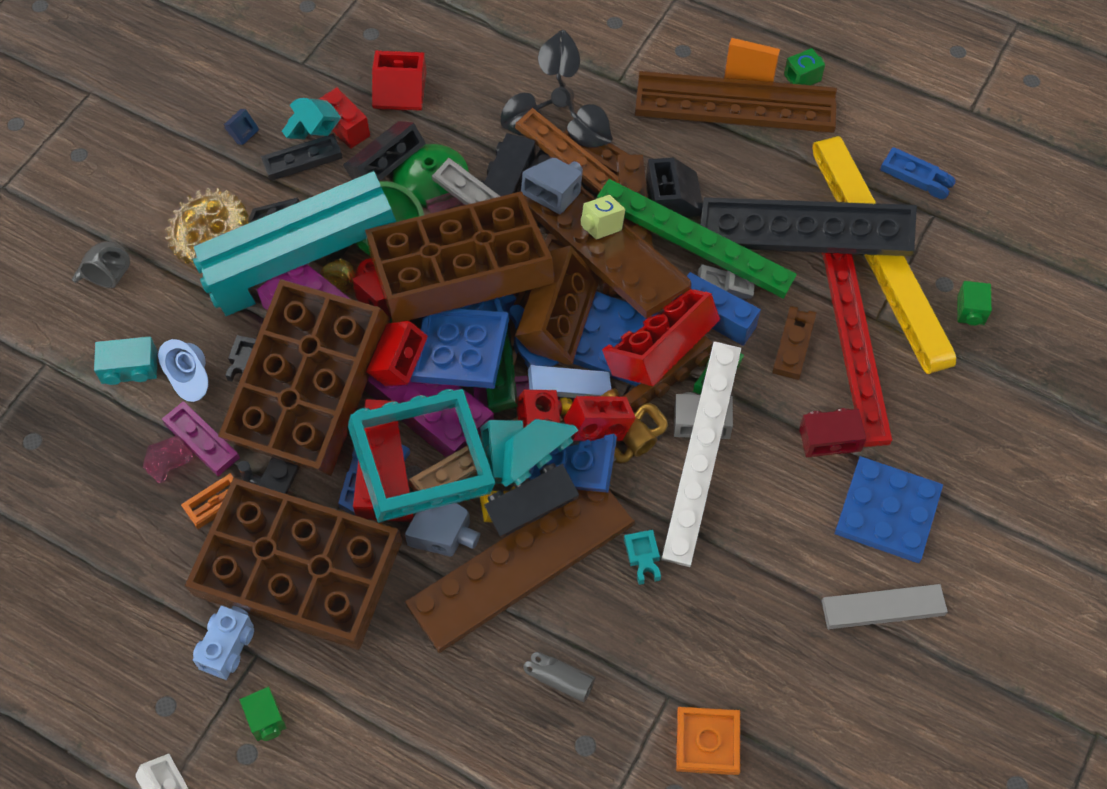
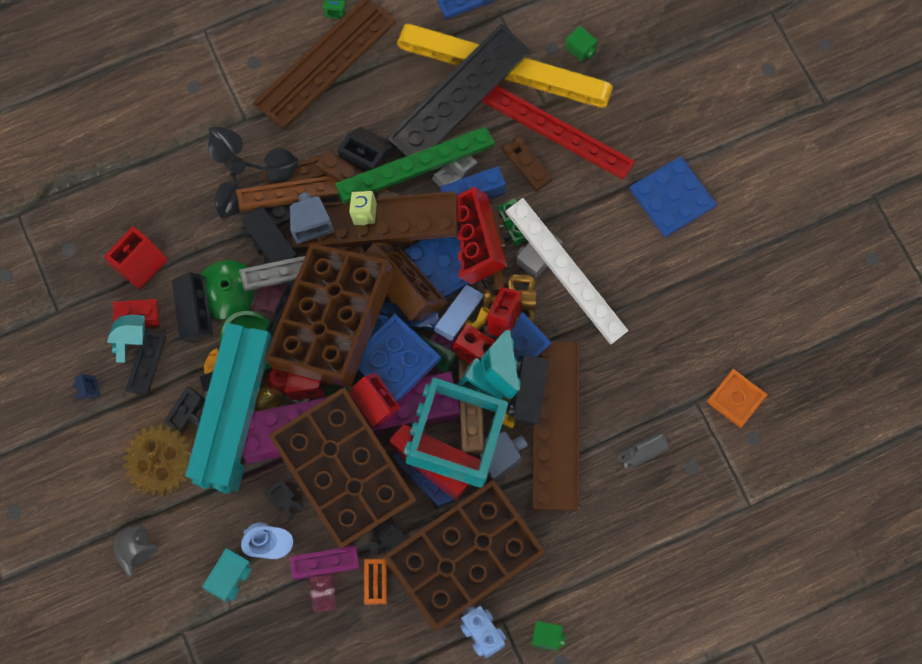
camera: 55 degrees left, 10 degrees up
(643, 552) = (599, 351): teal plate -> none
(751, 61) = (309, 30): orange tile -> none
(832, 432) = (604, 189): dark red brick -> none
(884, 606) = (728, 246): light grey tile -> none

